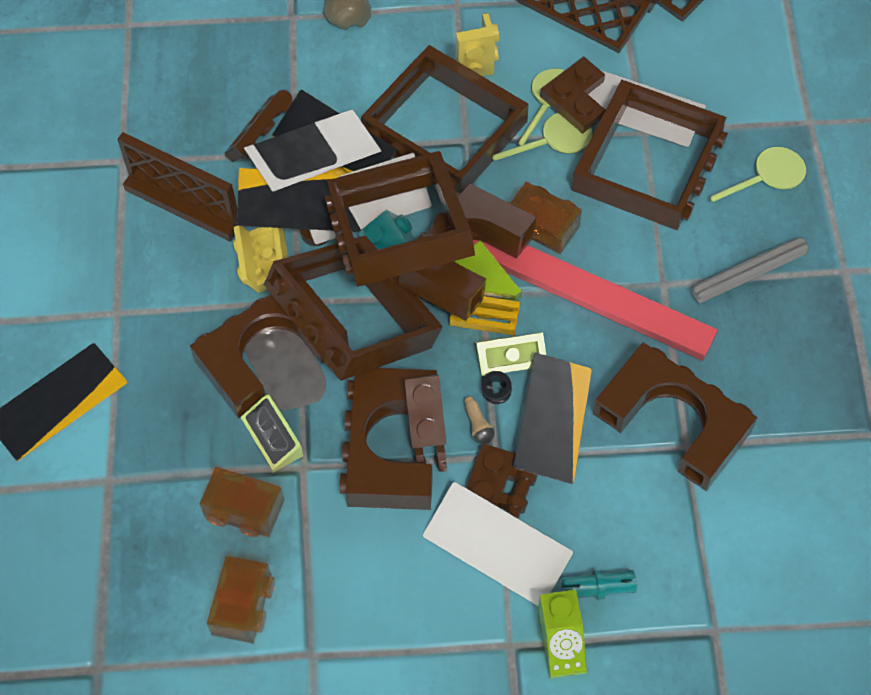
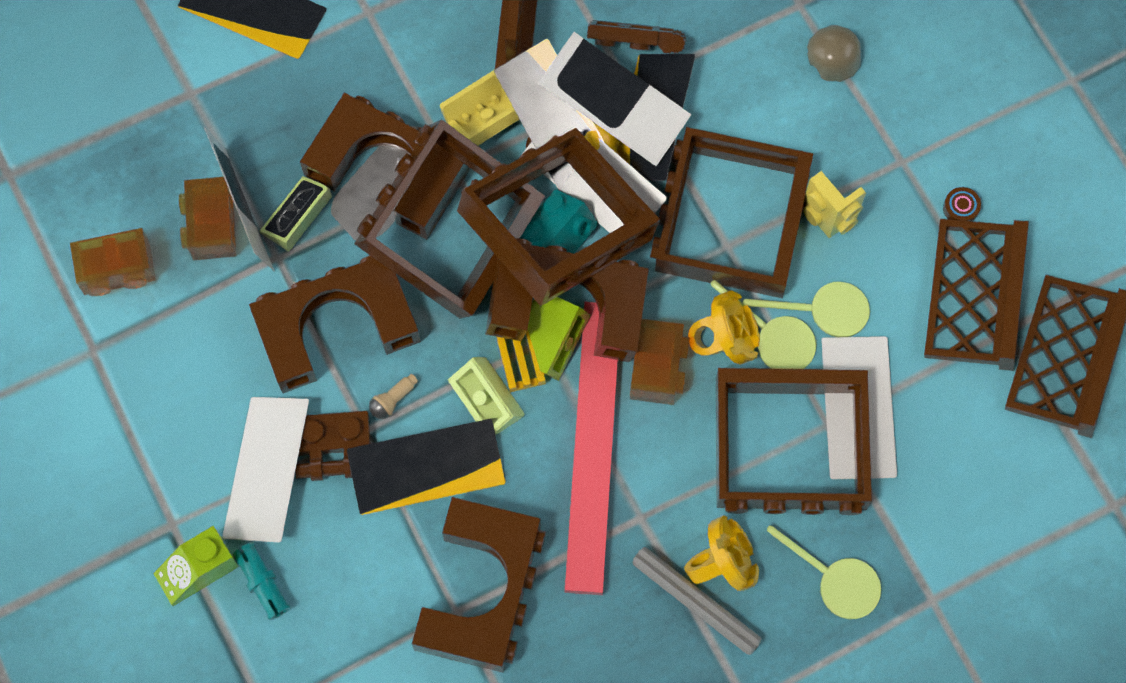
camera: 65 degrees right, 10 degrees up
(243, 466) = (239, 200): none -> sticker
(426, 417) = (359, 344): reddish brown hinge -> none
(488, 394) = (450, 399): black bush -> none
(543, 155) = (733, 329): none -> yellow tile
(570, 95) = (836, 323): reddish brown plate -> none
(728, 230) = (726, 556): none -> yellow tile

